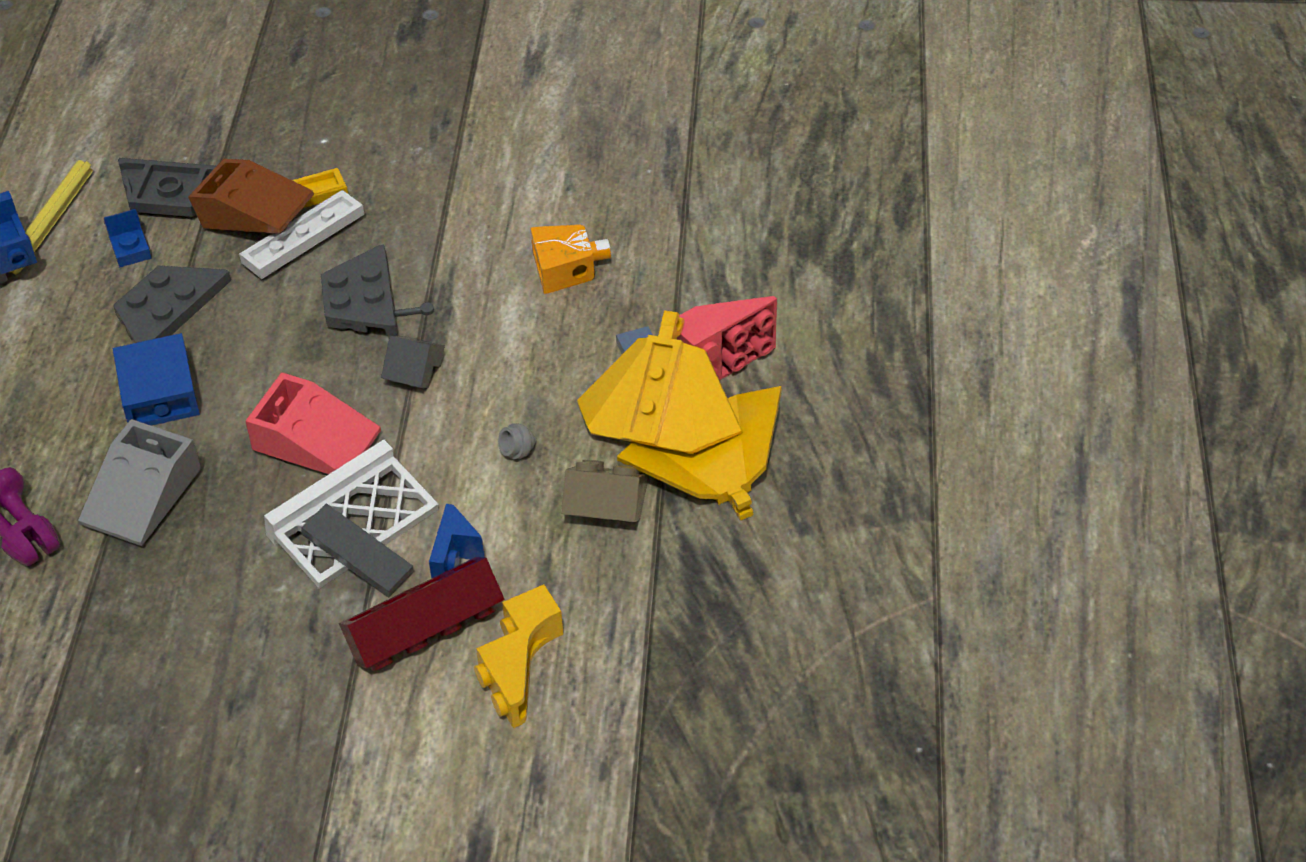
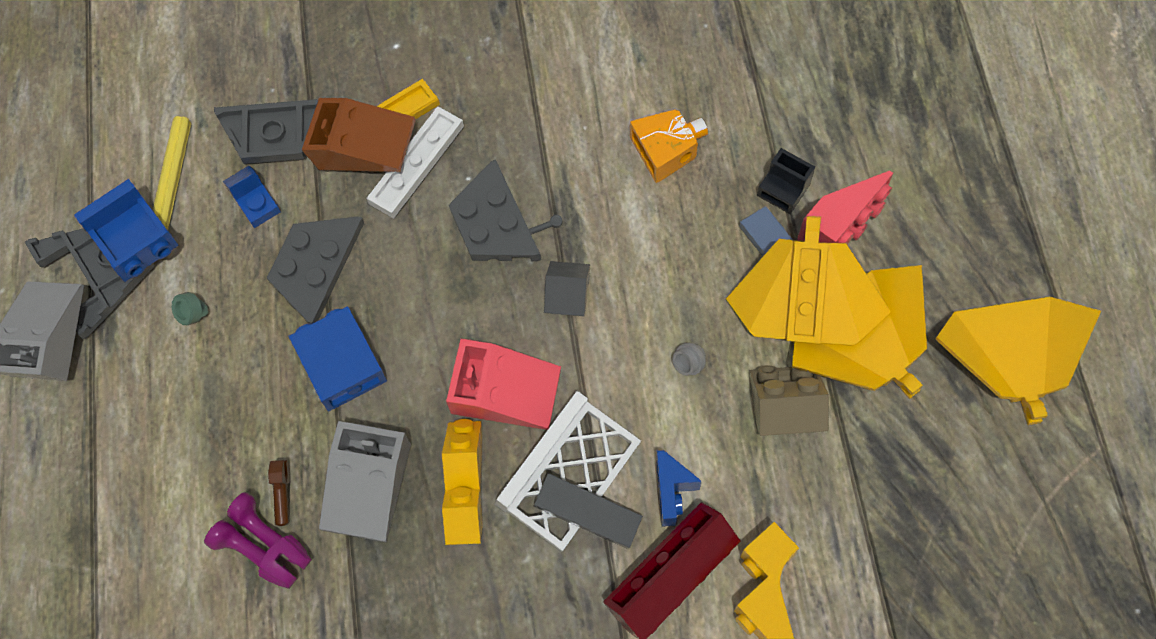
camera: 10 degrees left, 20 degrees up
(25, 317) = (188, 308): none -> sand green tile
(57, 470) = (279, 477): none -> reddish brown bar
(240, 491) = (462, 482): none -> yellow arch
(677, 295) = (786, 181): none -> black piece
(869, 489) = (1021, 347): none -> yellow panel

